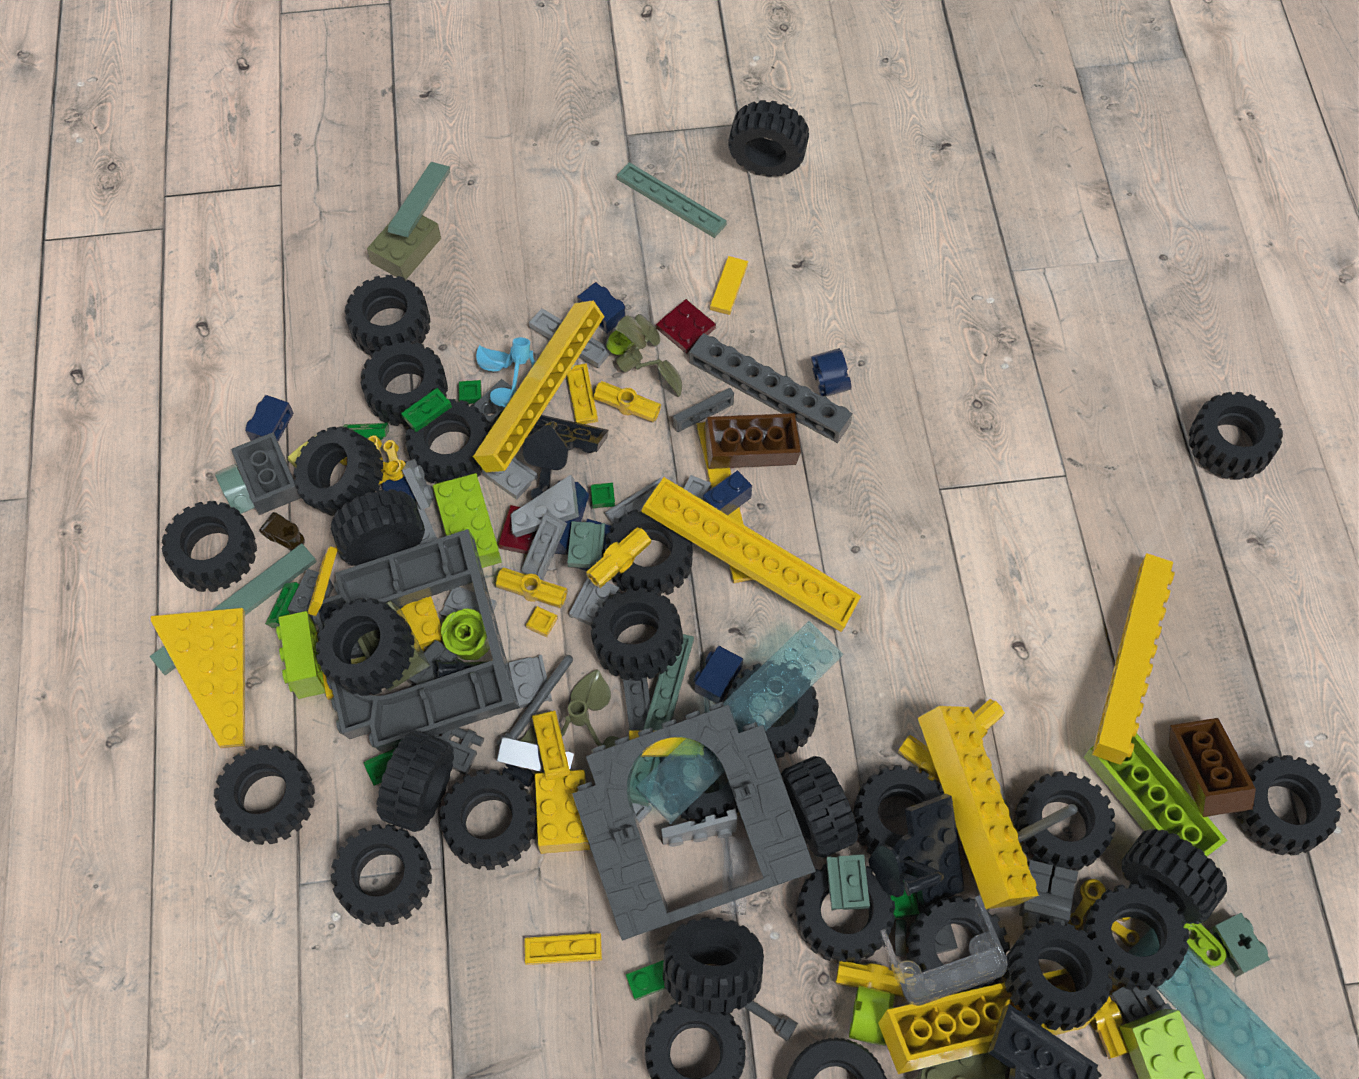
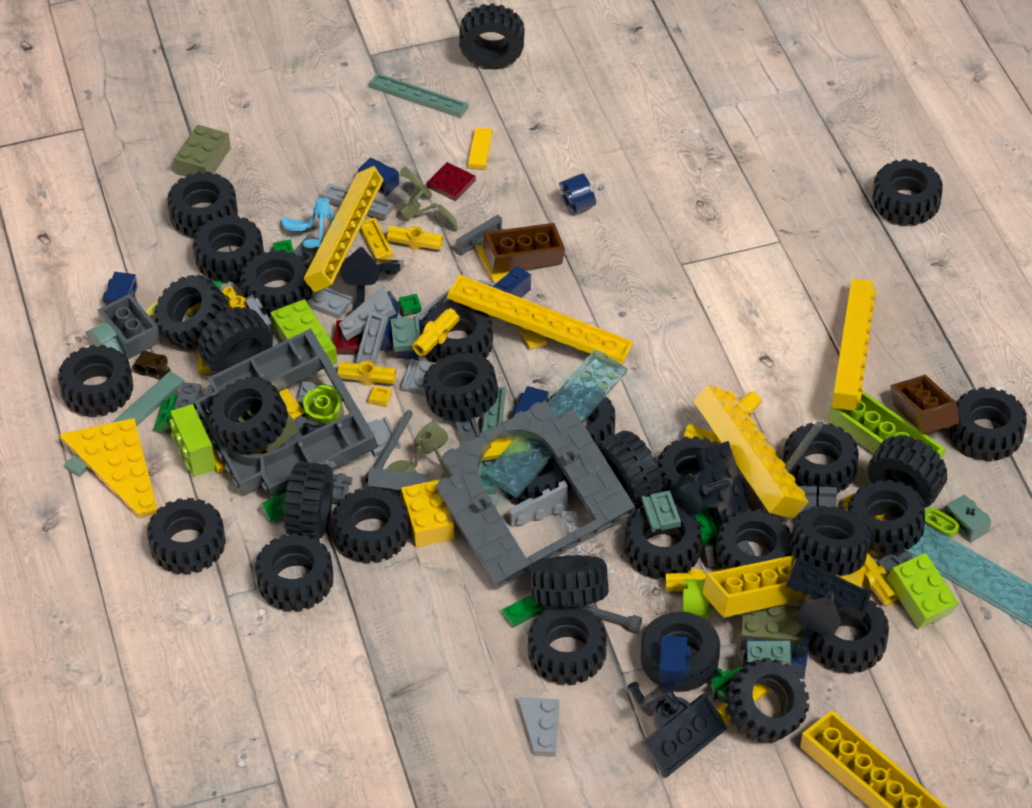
camera: 10 degrees left, 15 degrees down
(322, 581) = (199, 383): yellow tile -> none
(418, 199) = (209, 118): sand green tile -> none
(426, 410) = (255, 257): green plate -> none
(551, 745) = (409, 467): yellow tile -> none
(563, 949) = (448, 603): yellow tile -> none
(618, 343) = (401, 195): lime plate -> none
(774, 397) = (529, 212): dark grey brick -> none
(984, 964) = (748, 546): clear windscreen -> none

